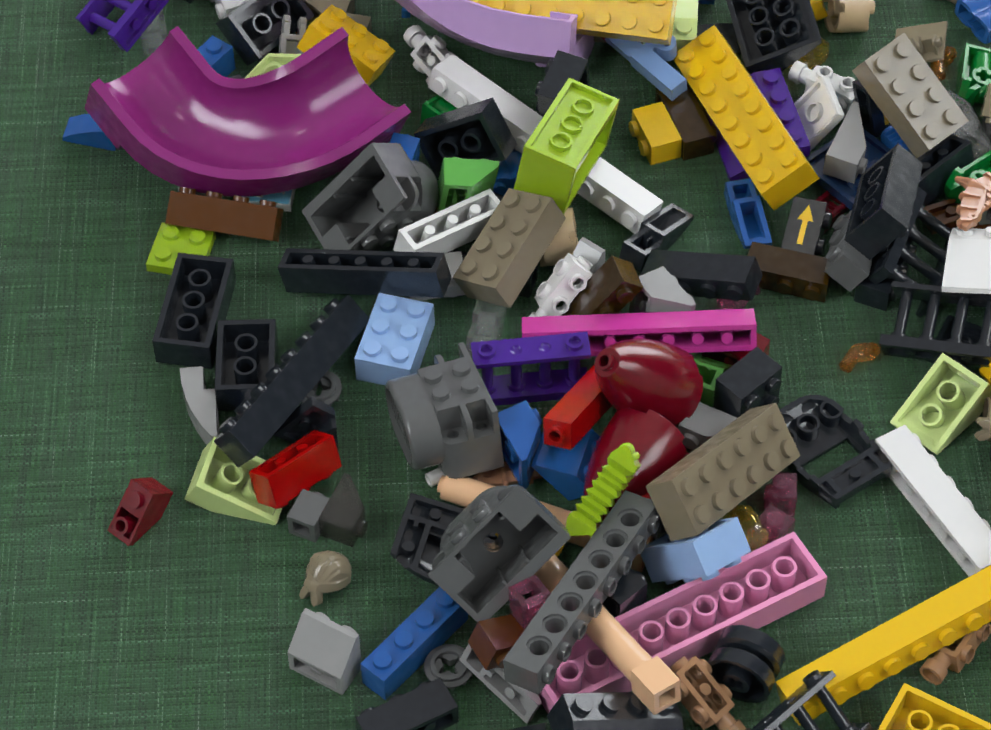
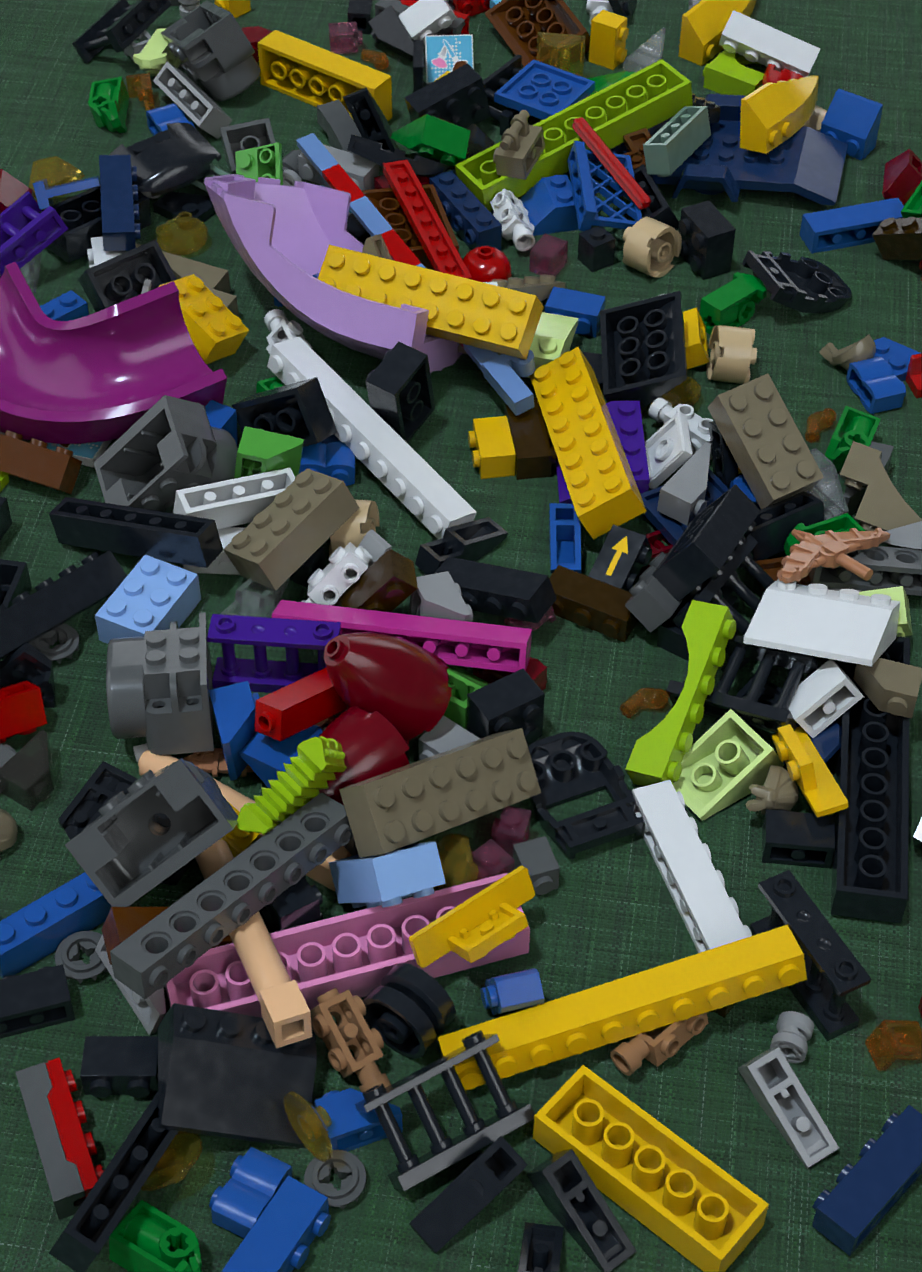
camera: 10 degrees right, 5 degrees down
(523, 609) = (170, 877): clear pink brick -> none
(567, 143) = (378, 432): lime hose -> none
(787, 580) = (478, 922): none -> yellow bracket
(812, 520) = (540, 862): none -> dark grey brick
(827, 632) = (512, 991): none -> blue brick
(889, 401) = (661, 751): none -> lime arch
(927, 39) = (805, 400): dark tan hinge -> none

